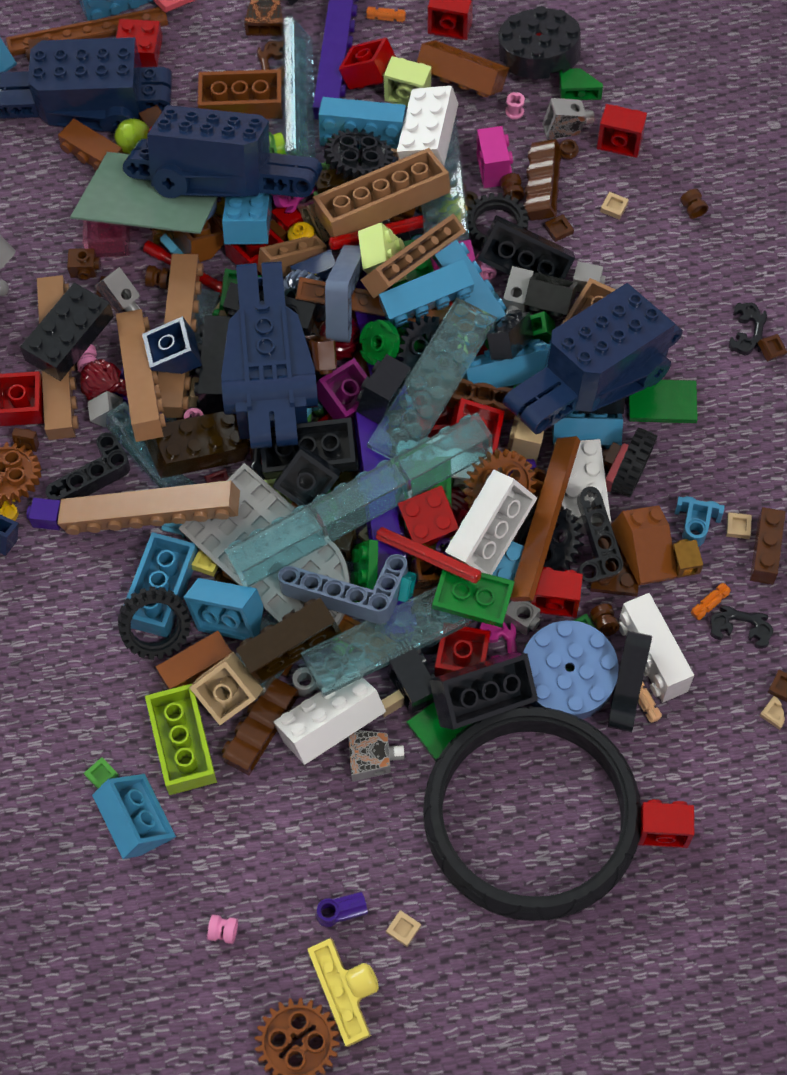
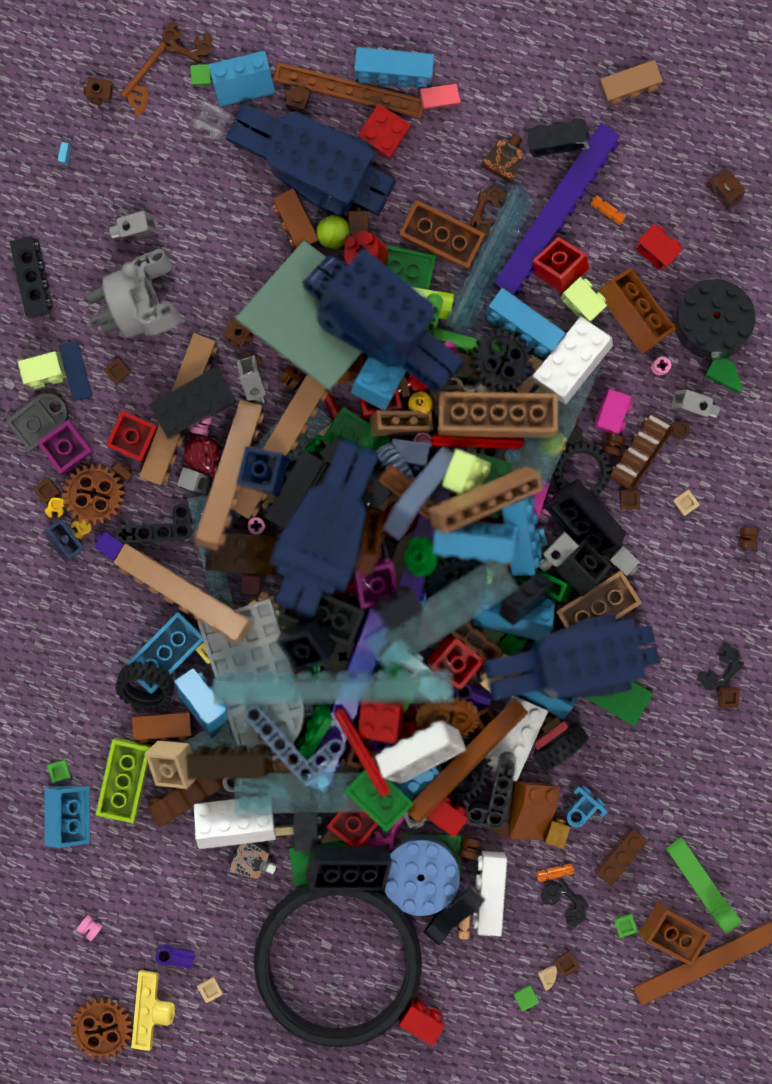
camera: 25 degrees right, 25 degrees up
(407, 586) = (336, 764): teal tile -> none
(621, 130) = (730, 442): red brick -> none
(738, 525) = (612, 825): tan tile -> none
(765, 748) = (526, 998): none -> bright green tile

